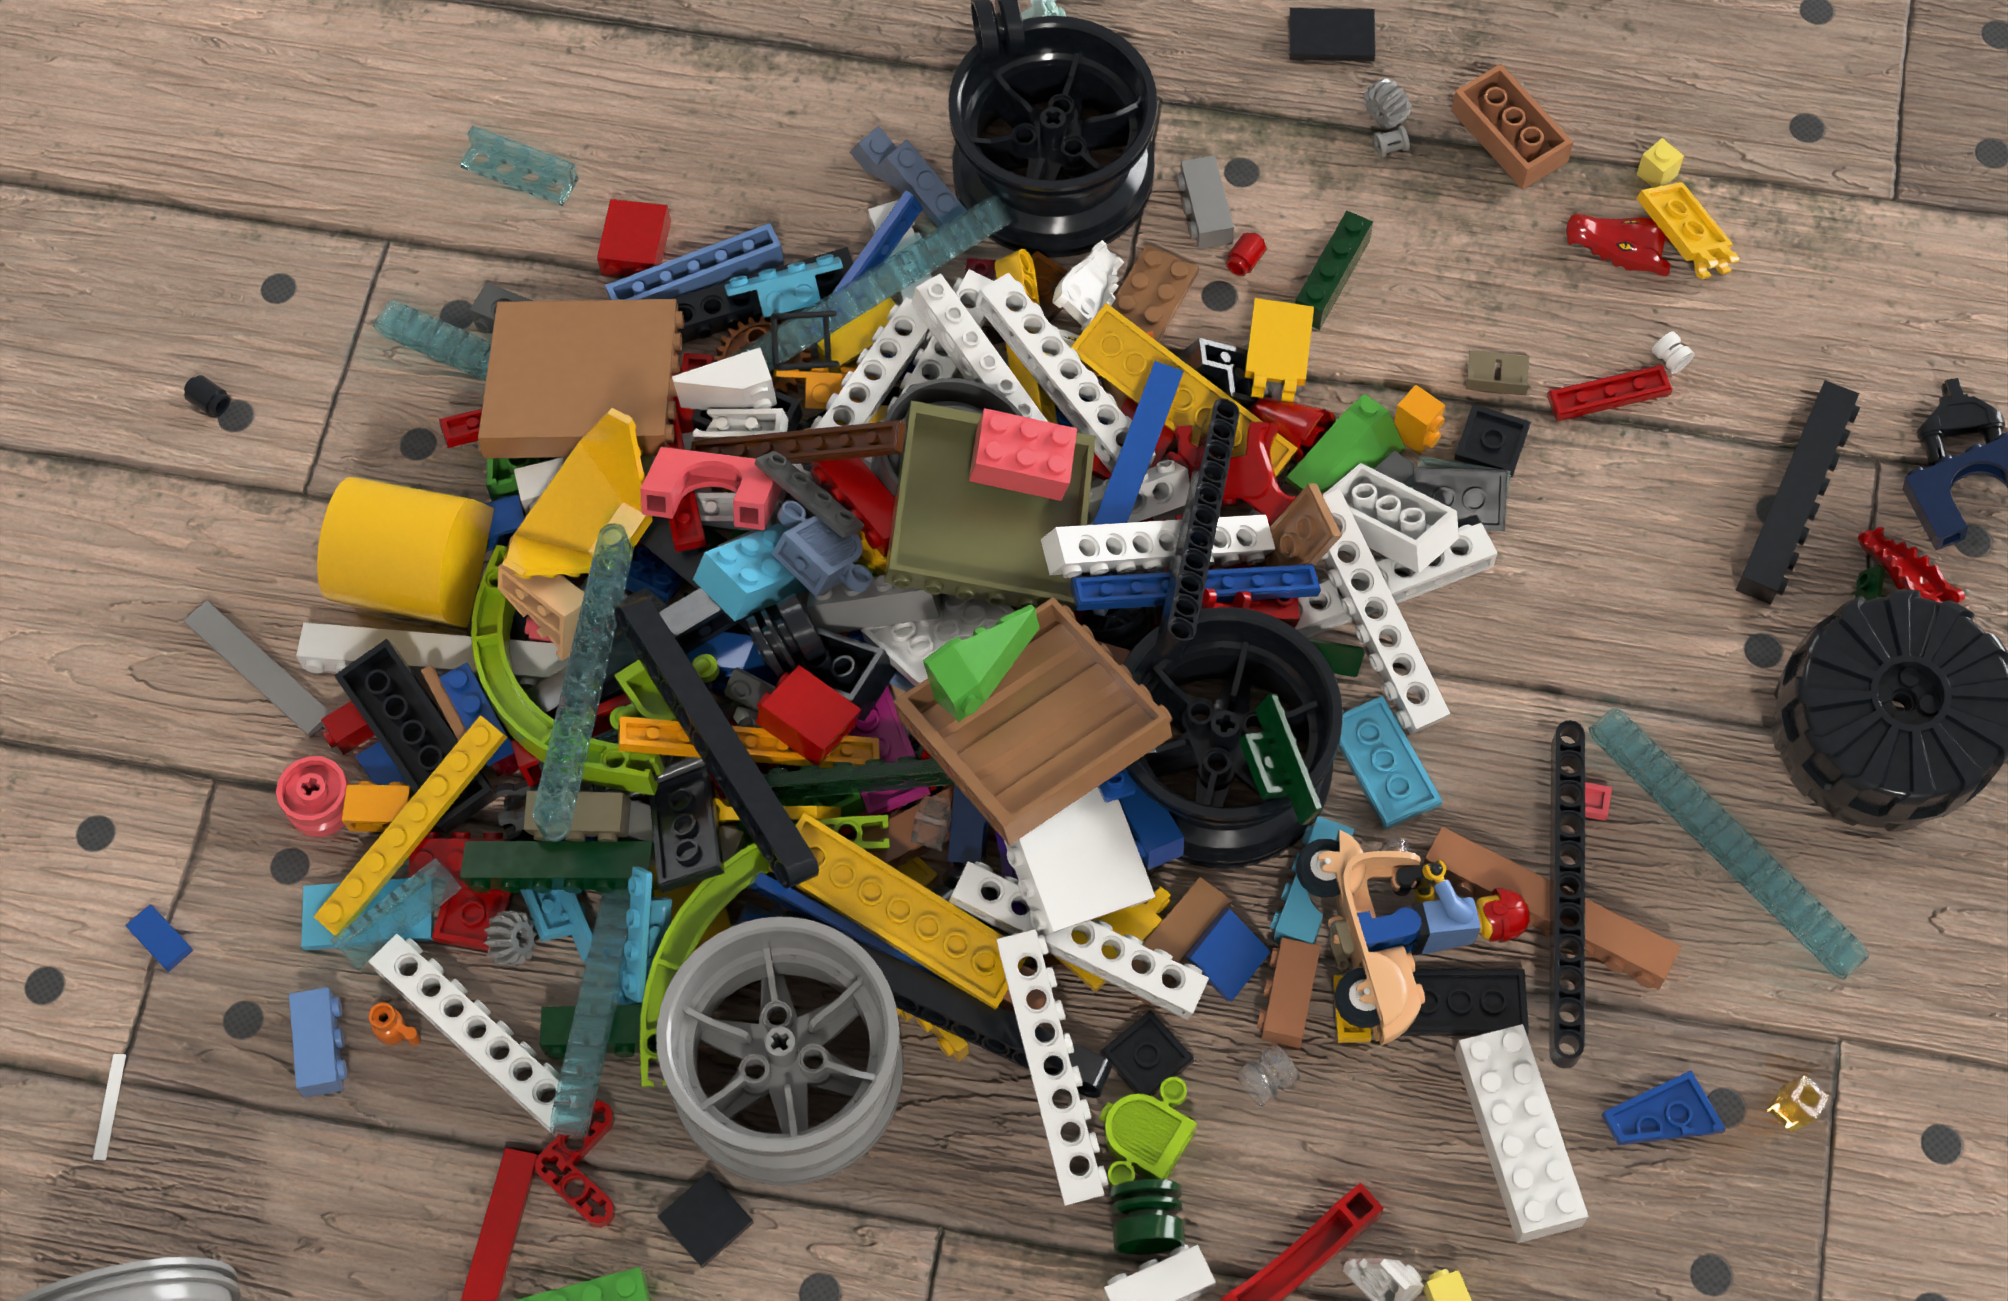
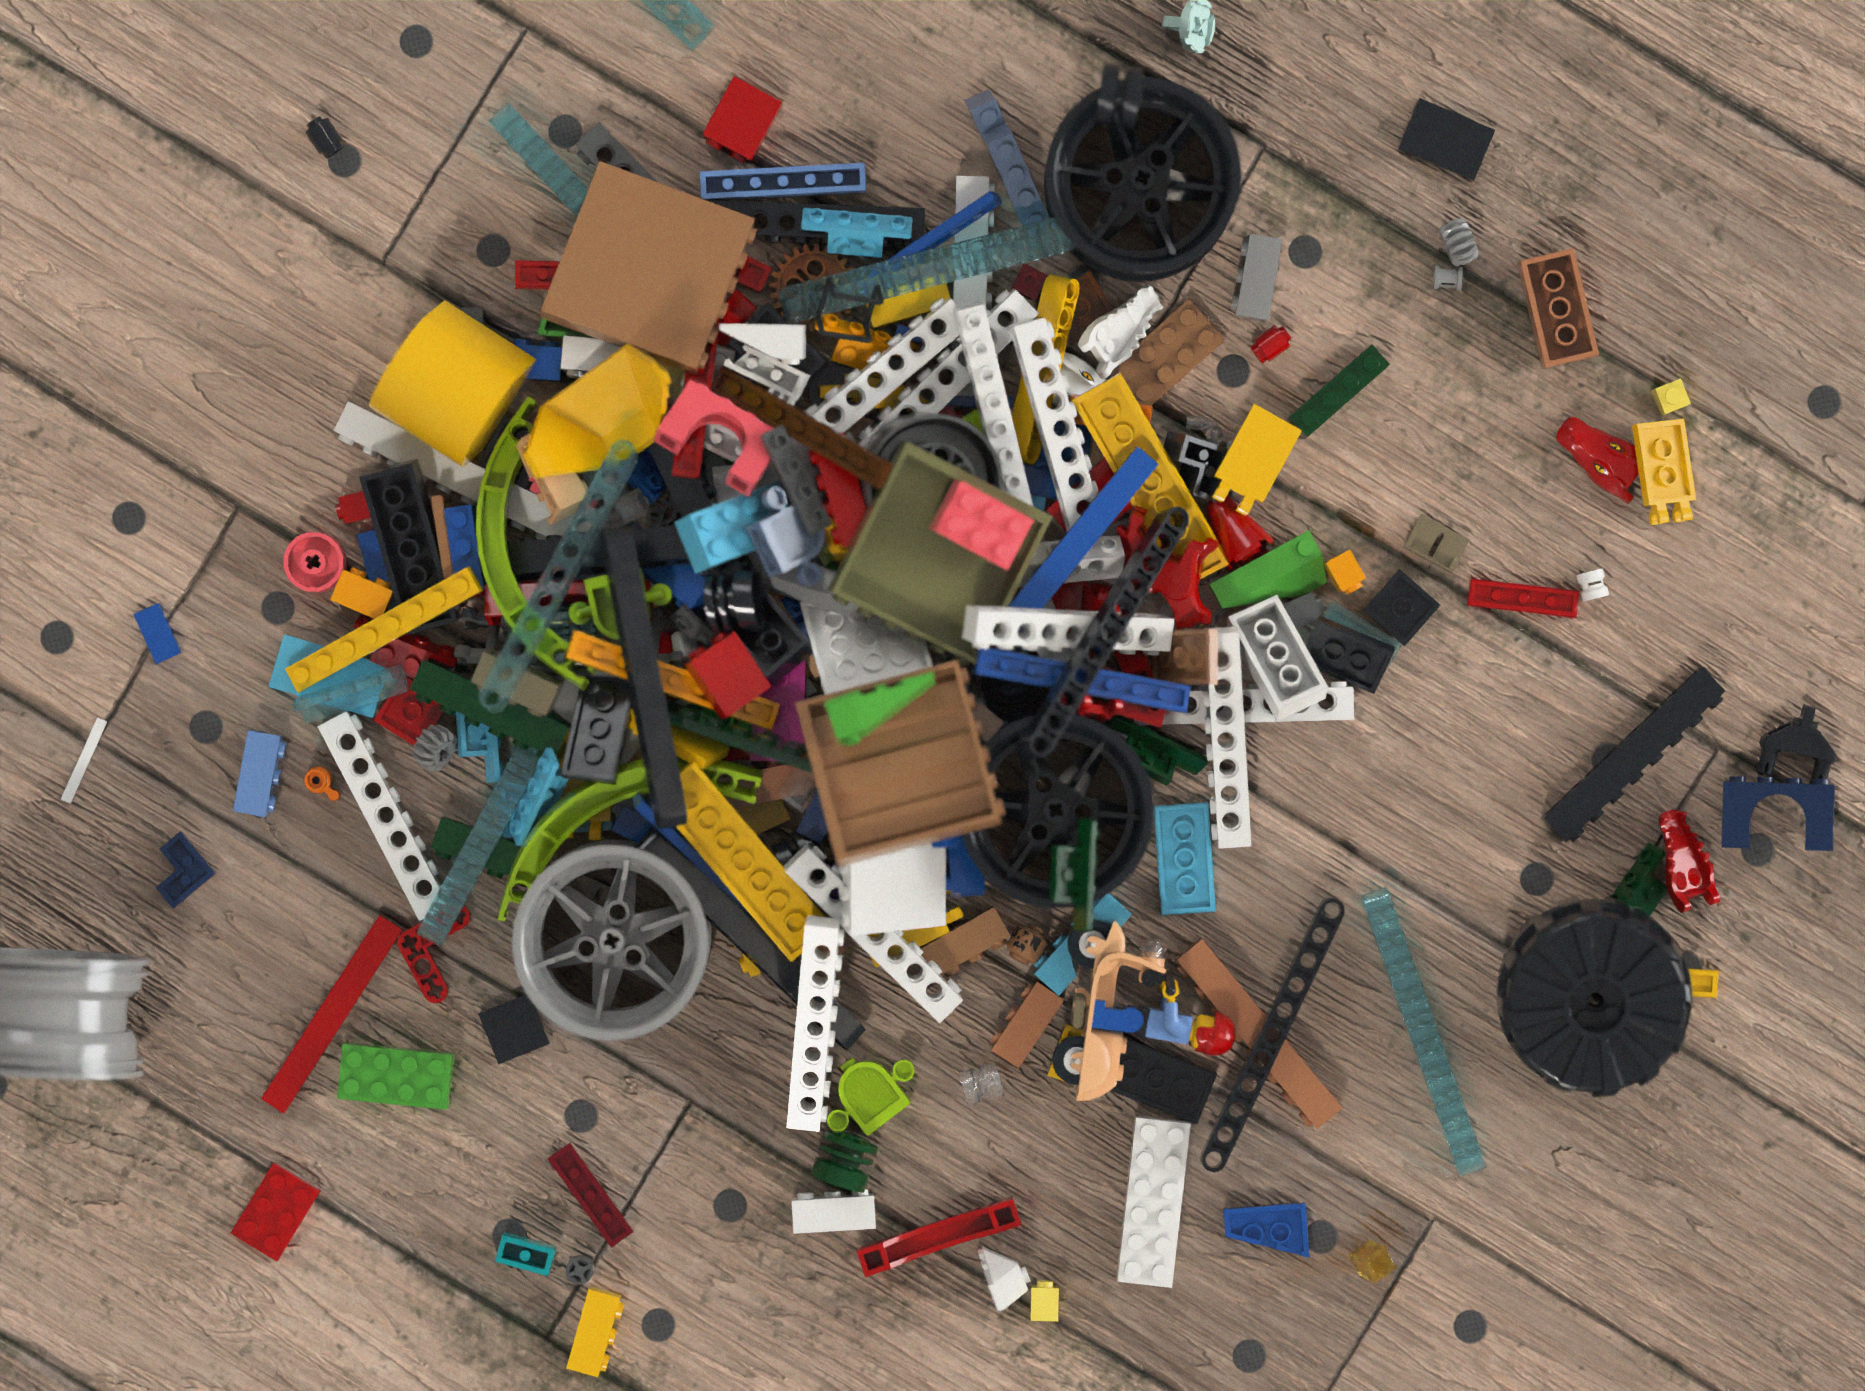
camera: 15 degrees right, 25 degrees up
(257, 668) = (299, 419): light grey tile -> none
(266, 1179) = (190, 871): none -> dark blue plate
(1147, 1055) = (897, 1029): black tile -> none
(1228, 954) = (990, 977): blue tile -> none
(1254, 905) = (1026, 944): none -> medium nougat head
(1597, 801) = (1336, 958): coral plate -> none

